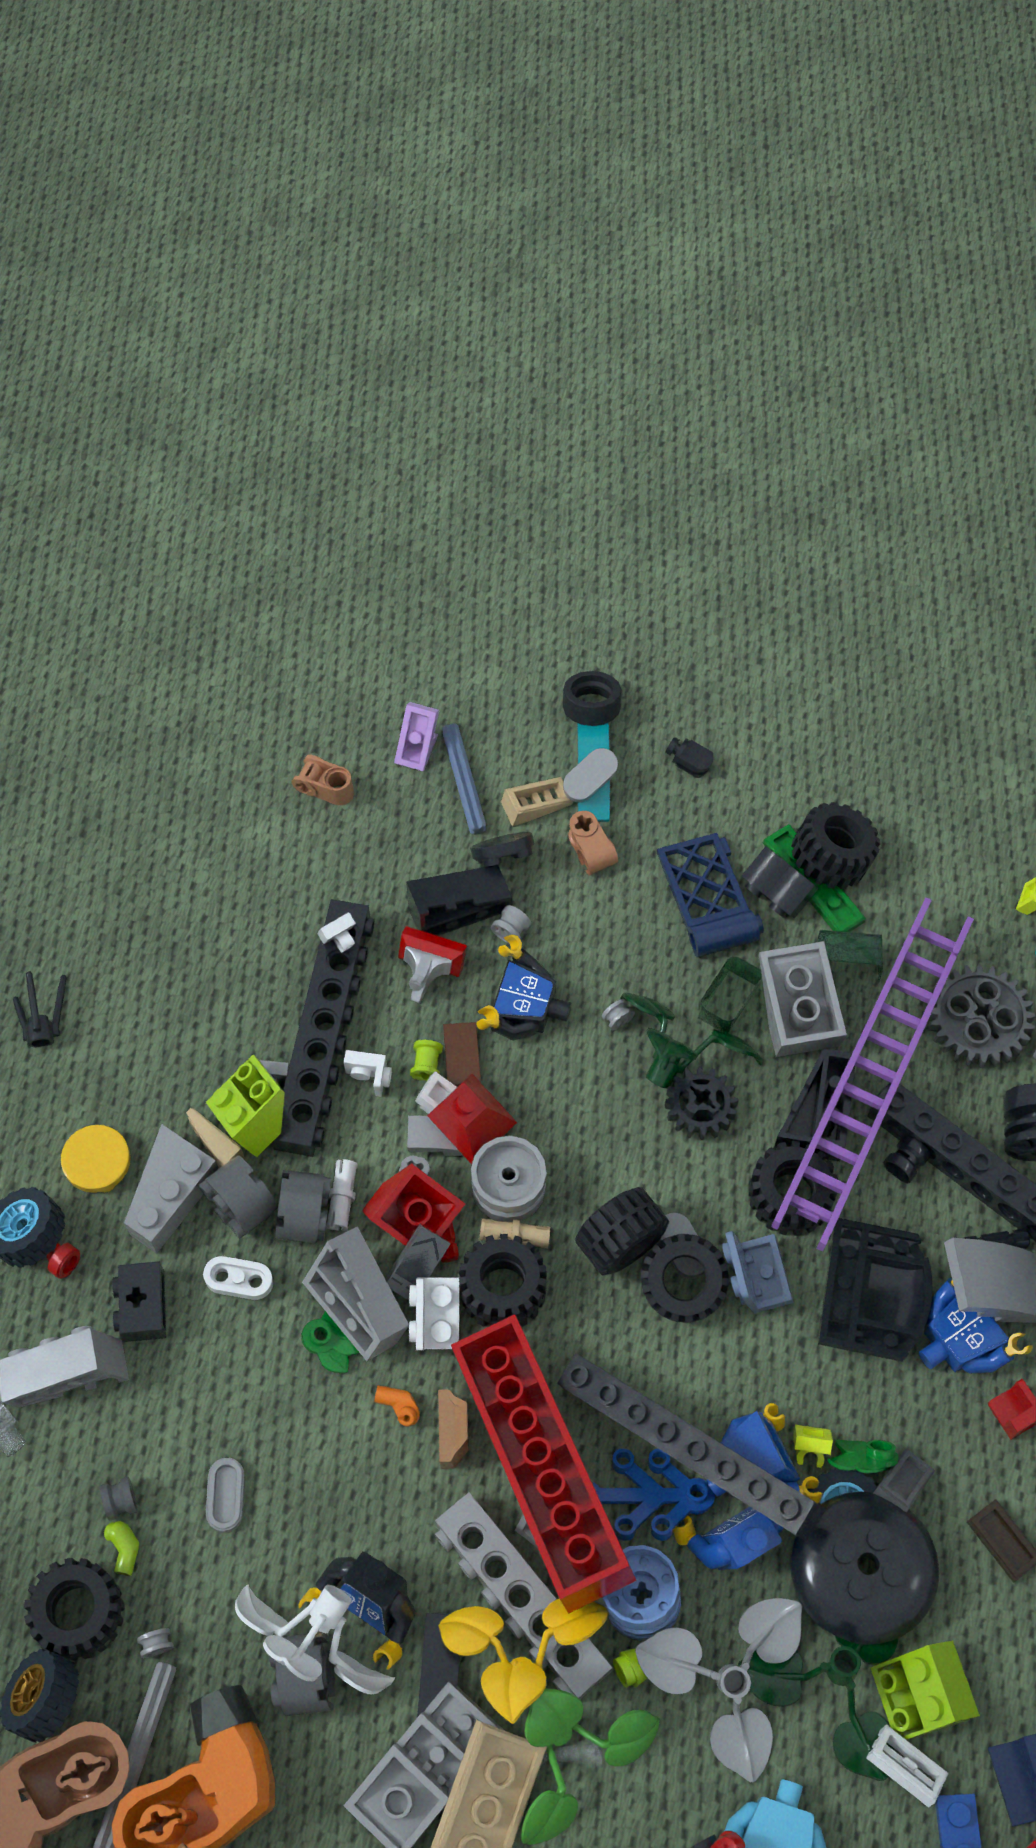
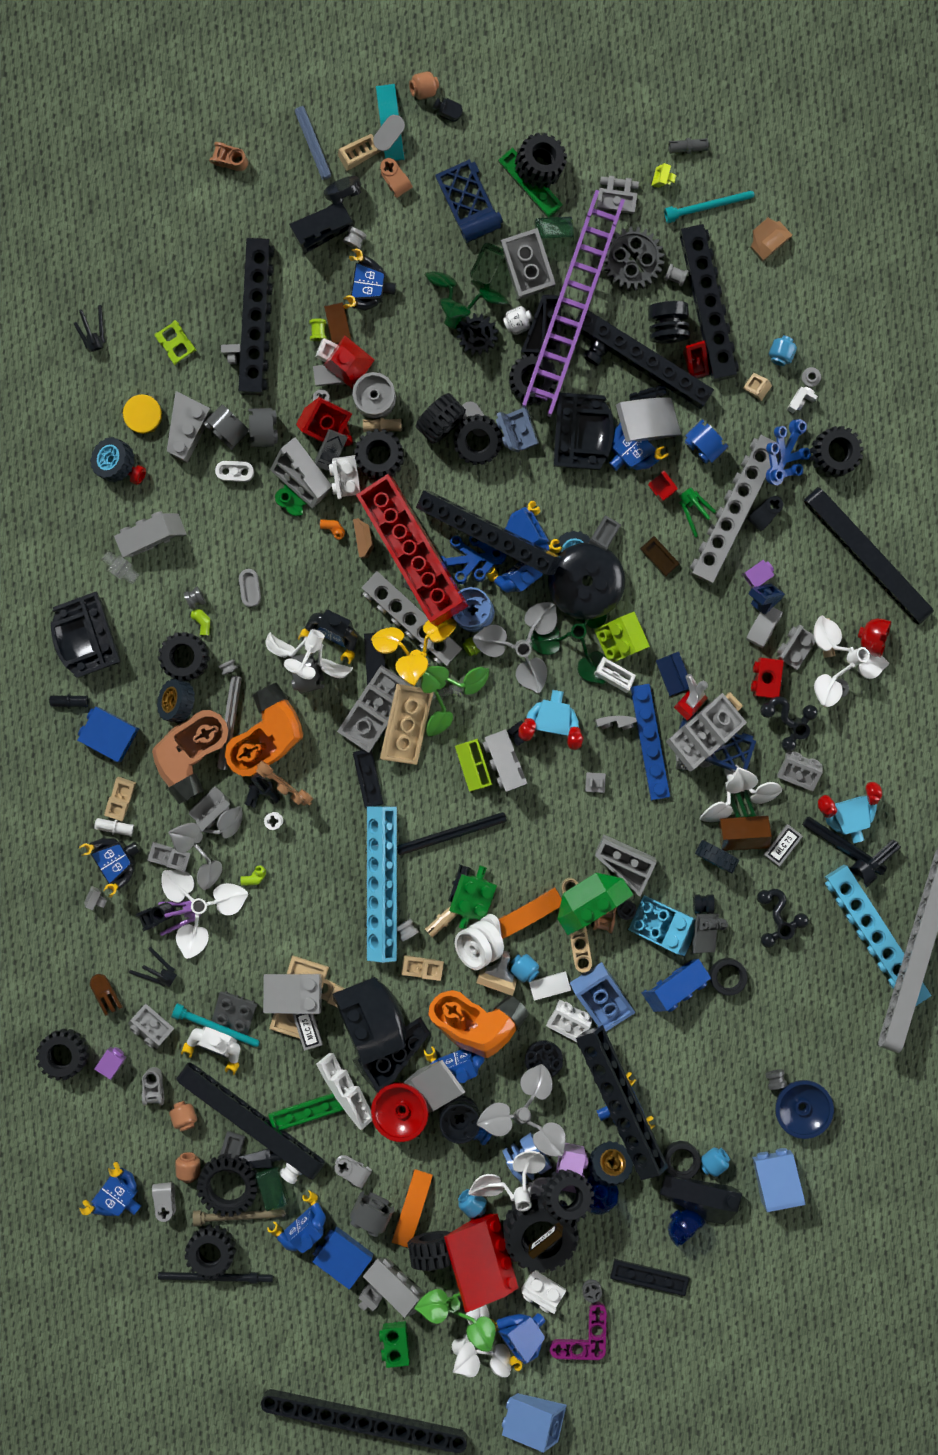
camera: 10 degrees left, 25 degrees up
(149, 1319) = (191, 500): black brick -> none
(186, 1045) = (181, 338): none -> lime piece
(215, 1141) = (207, 395): tan slope -> none
(250, 1106) = (222, 374): lime slope -> none
(339, 932) = (254, 259): white tile -> none
(341, 1195) = (283, 416): white pin -> none
(367, 1065) = (284, 338): white bracket -> none
(417, 736) = (280, 119): lavender slope -> none
(429, 958) = (310, 266): piece -> none
(588, 712) = (383, 65): black tyre -> none
(618, 1014) = (424, 286): light grey bush -> none
(654, 718) = (423, 85): none -> nougat head
(775, 1088) = (518, 320): none -> white head
(779, 882) = (510, 189): black brick -> none
(813, 1440) = (555, 517): neon yellow tile -> none
(865, 1456) = (582, 523): green plate -> none
(949, 919) = (610, 199): none -> light grey plate

